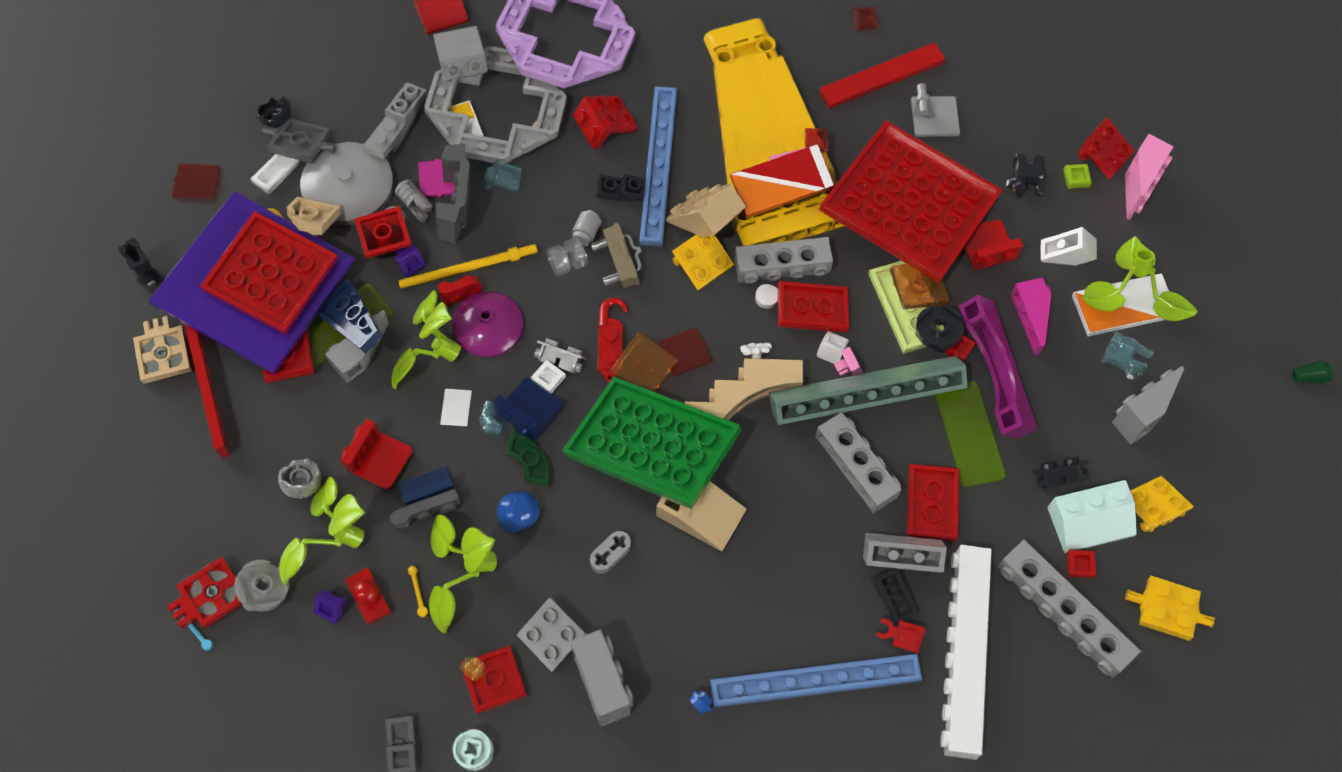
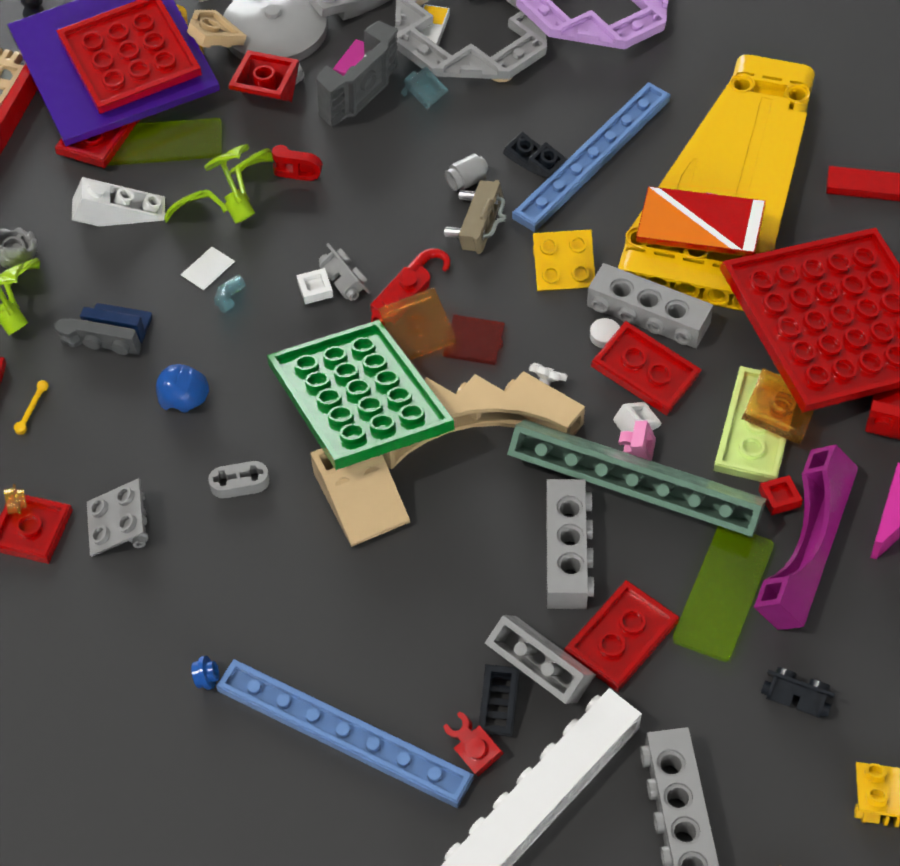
camera: 40 degrees right, 10 degrees down
(349, 359) = (159, 166): light grey slope -> none
(350, 317) = (169, 129): dark blue wing -> none
(350, 399) = (111, 204): none -> white slope
(375, 456) = (93, 263): red bracket -> none
(409, 260) = (271, 115): dark purple tile -> none
(414, 199) = (320, 56): light grey hinge -> none
(477, 559) = (102, 407): lime plant -> none
(491, 335) = (300, 211): magenta dish -> none
(513, 254) = (374, 161): yellow bar -> none
(528, 408) = (271, 303): clear blue bracket -> none
(531, 459) = (236, 353): dark green tile -> none
(559, 260) = (414, 186): clear wheel -> none
(601, 116) = (572, 81): red bracket -> none
(602, 677) = (121, 582): light grey brick -> none
(707, 210) = (600, 211): tan slope -> none
(816, 136) = (778, 205): clear red tile -> none
(935, 339) = (764, 473): black plate -> none
(1081, 564) = (743, 801): red plate -> none
(1094, 516) = (800, 760): light aqua slope -> none

